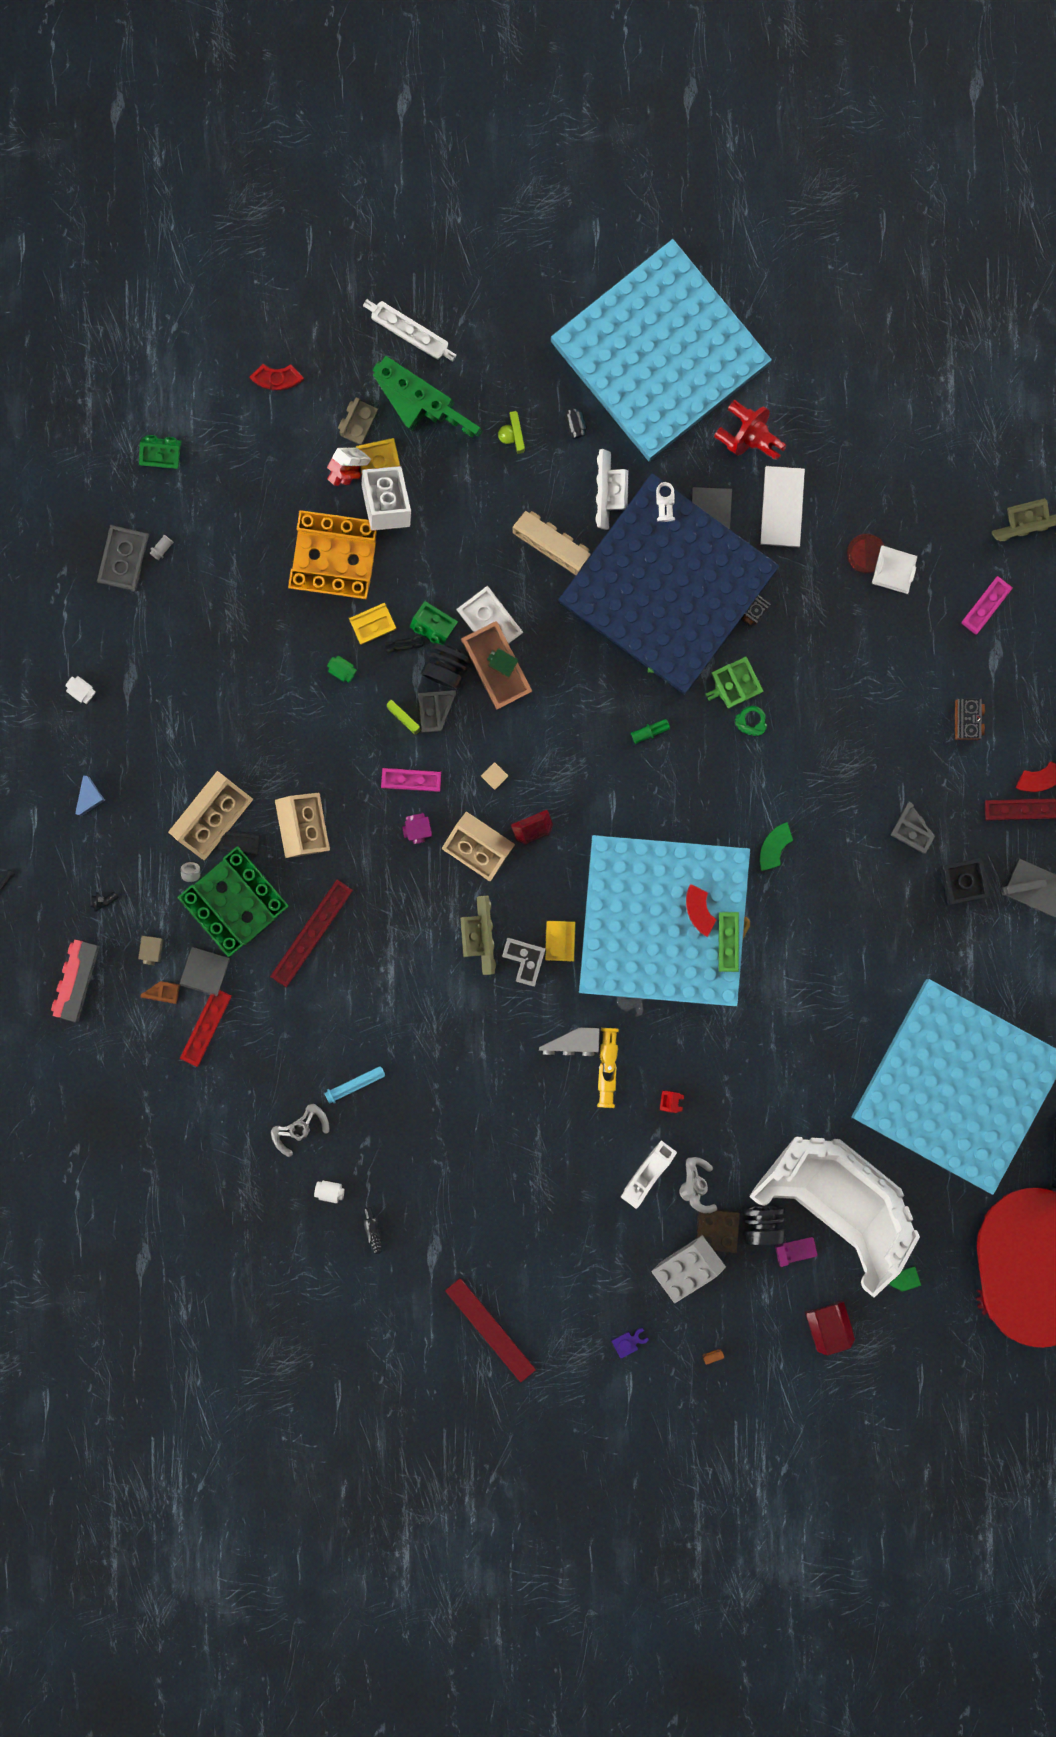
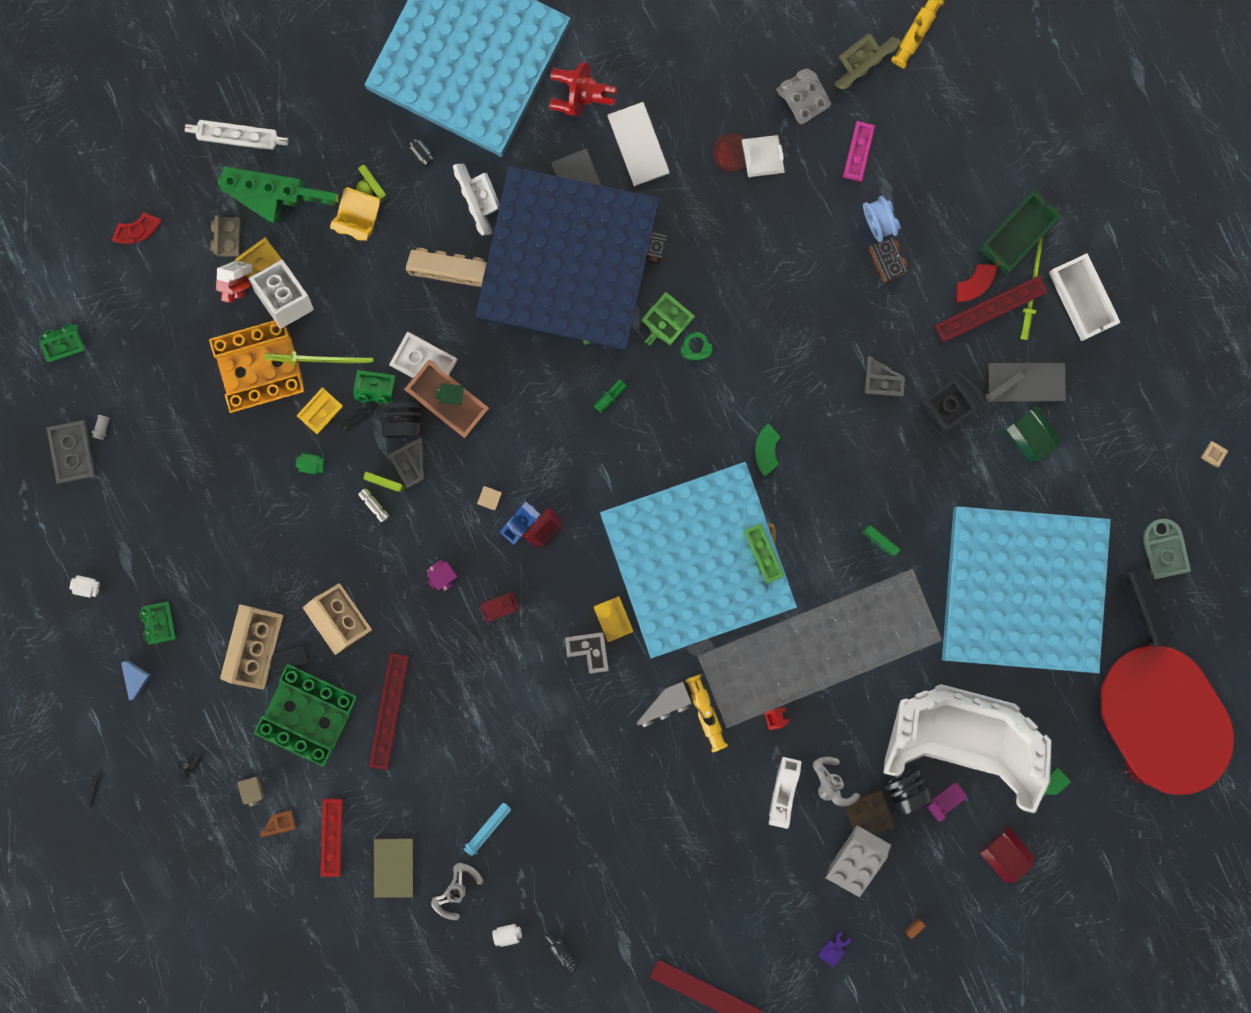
camera: 20 degrees left, 0 degrees up
(75, 981) = (197, 848): piece -> none
(132, 754) = (157, 623): none -> green bracket
(190, 872) = (255, 705): light grey tile -> none
(204, 971) = (308, 788): dark grey tile -> none
(251, 1081) = (393, 867): none -> olive tile
(369, 563) = (293, 358): none -> lime sword
(383, 734) = (373, 504): none -> white axle
(411, 780) = (416, 535): dark pink tile -> none
(459, 882) = (500, 607): none -> dark red torso
(478, 846) = (502, 567): tan slope -> none
(478, 935) = (538, 648): olive bracket -> none
(488, 455) = (356, 214): none -> yellow bracket
(513, 812) = (520, 523): none -> blue brick
(665, 502) = (531, 186): white connector -> none
(698, 911) = (724, 537): red tile -> none
(741, 1054) = (819, 648): none -> clear brick
(843, 979) = (880, 540): none -> green tile
(959, 530) = (804, 95): none -> light grey bracket
(979, 677) = (881, 218): none -> light blue wheel
(1031, 945) = (1033, 435): none -> dark green slope

